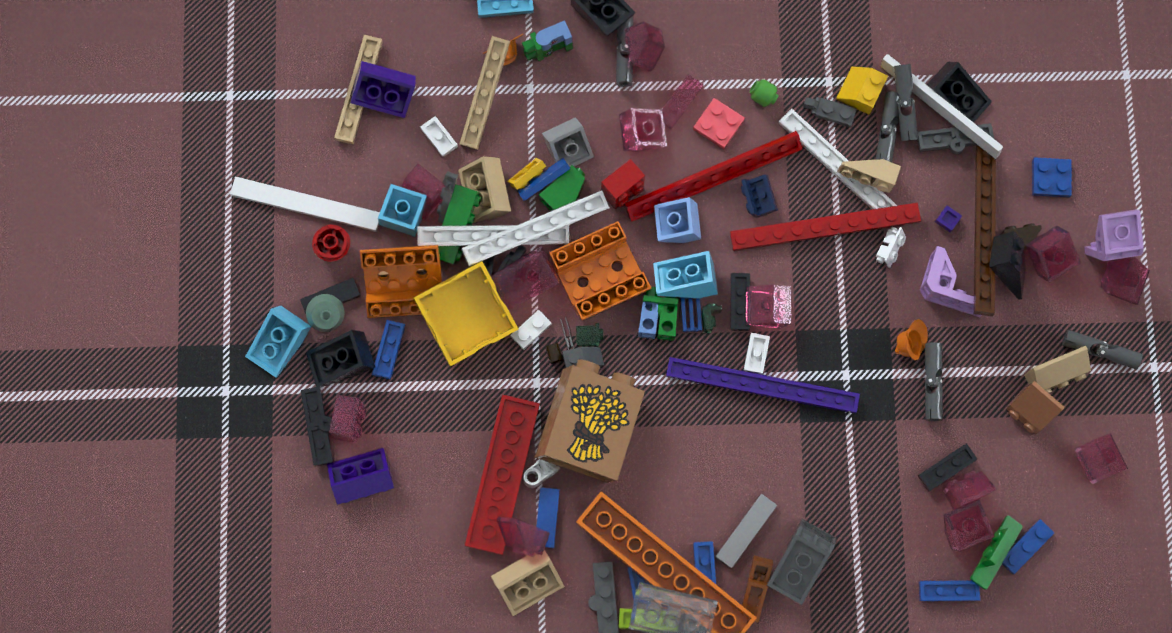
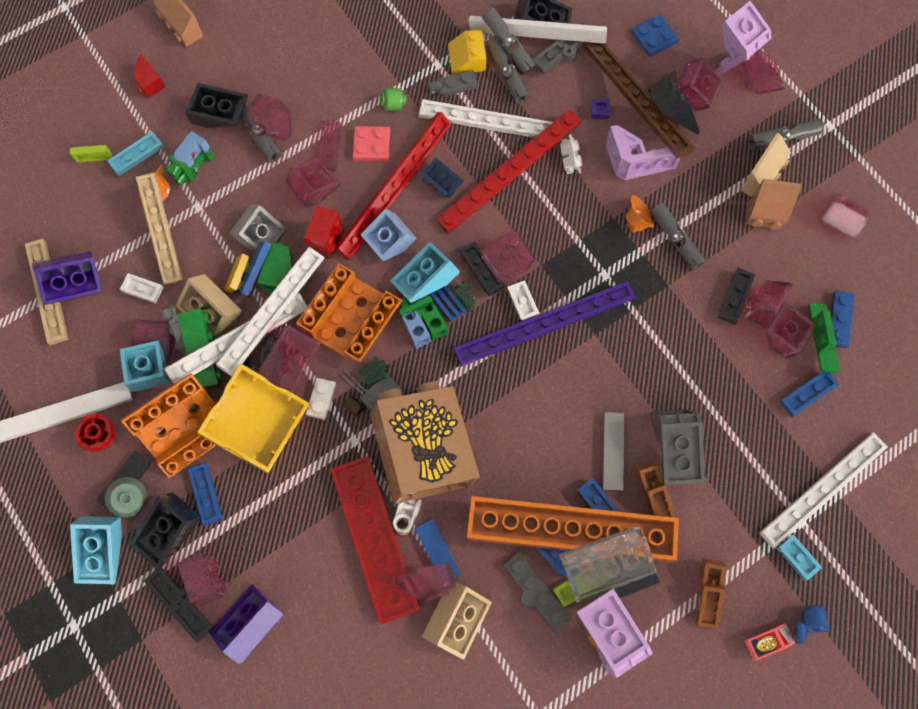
camera: 30 degrees left, 5 degrees down
(875, 173) = (521, 106): tan slope -> none

